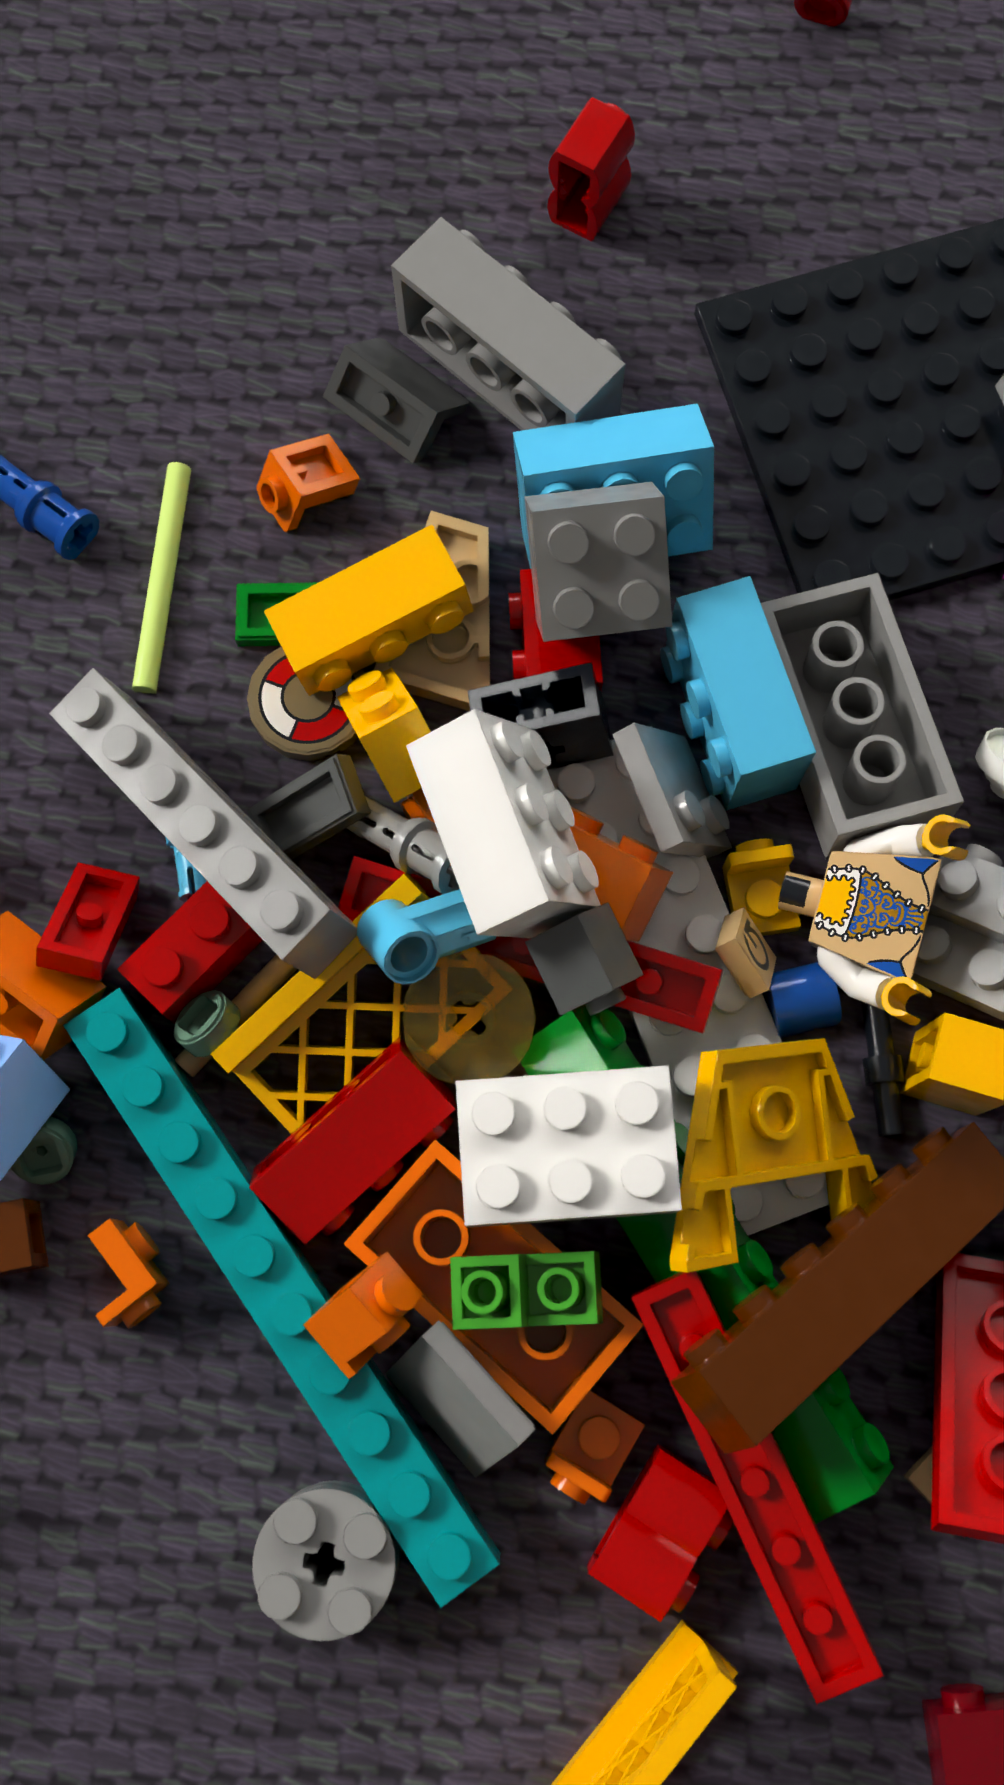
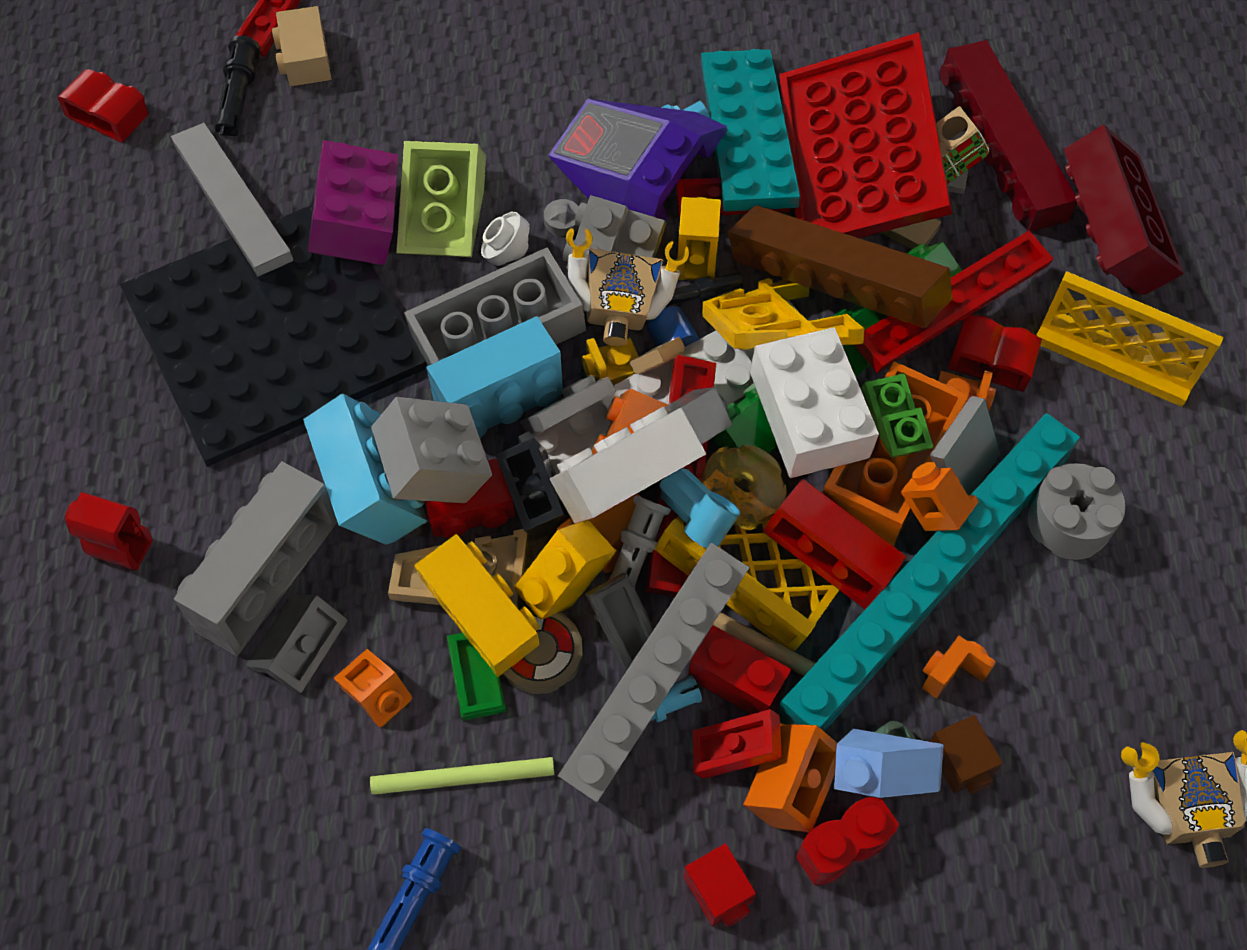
camera: 105 degrees left, 15 degrees down
(206, 1023) = (787, 648): sand green tile -> none

